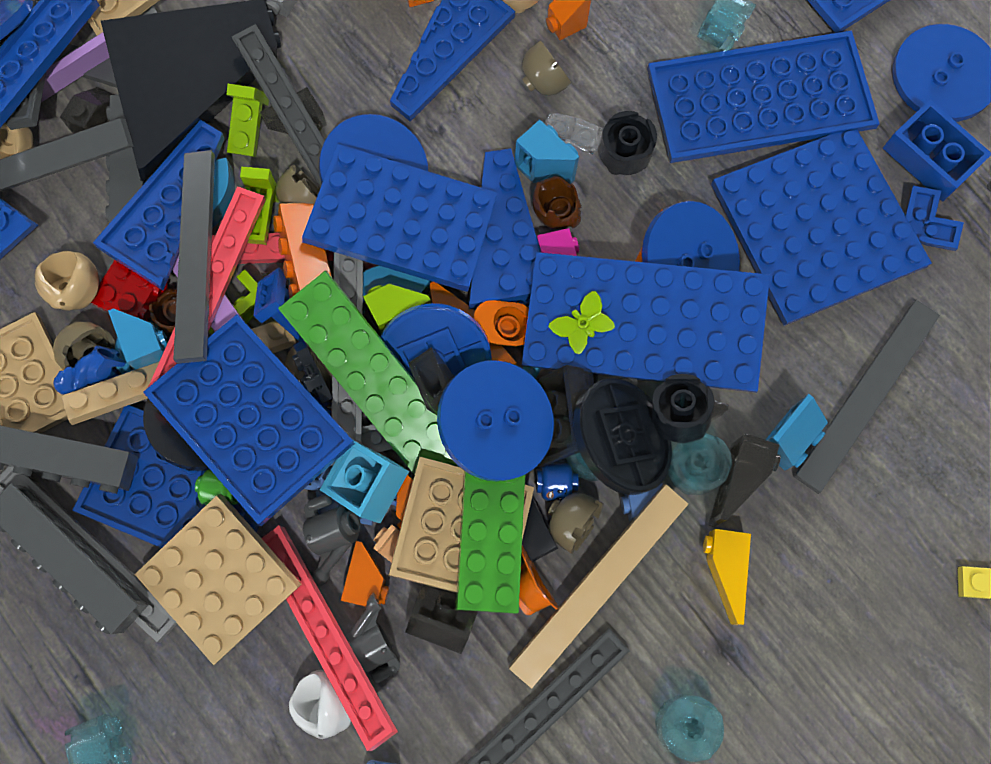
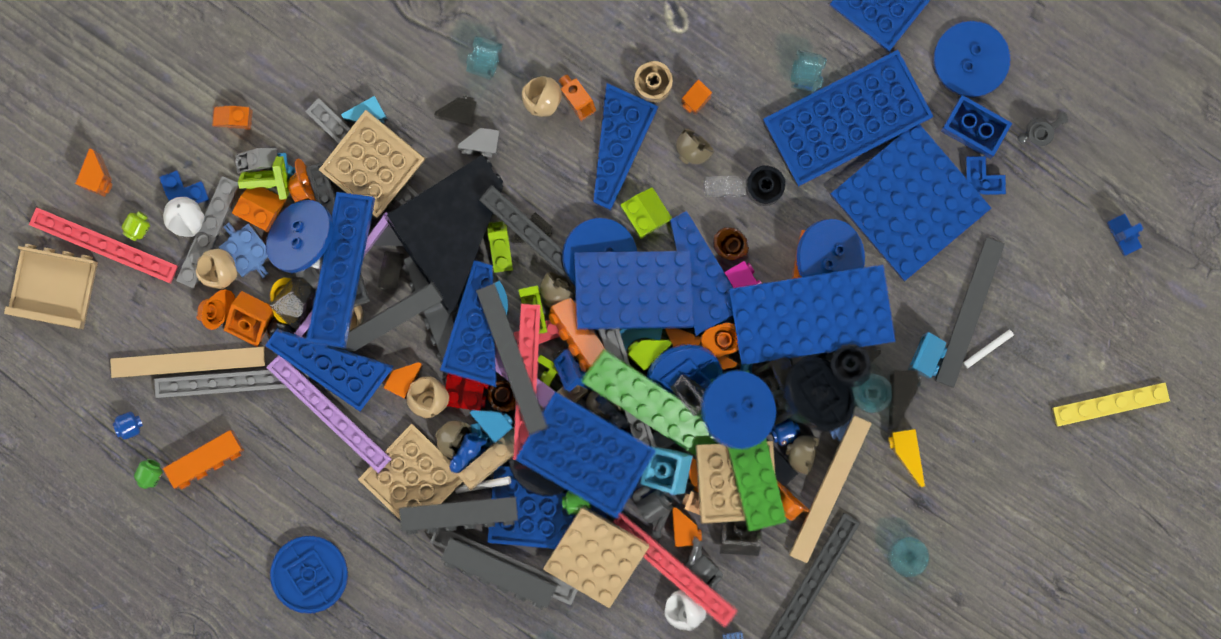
camera: 15 degrees left, 10 degrees up
(41, 244) = (400, 379): none -> orange slope
(101, 426) = (485, 484): none -> white bar
(454, 134) = (645, 212): none -> lime slope
(544, 155) = (712, 214): dark azure slope -> none
(584, 324) = (774, 329): lime piece -> none
(882, 453) = (987, 349): none -> white bar

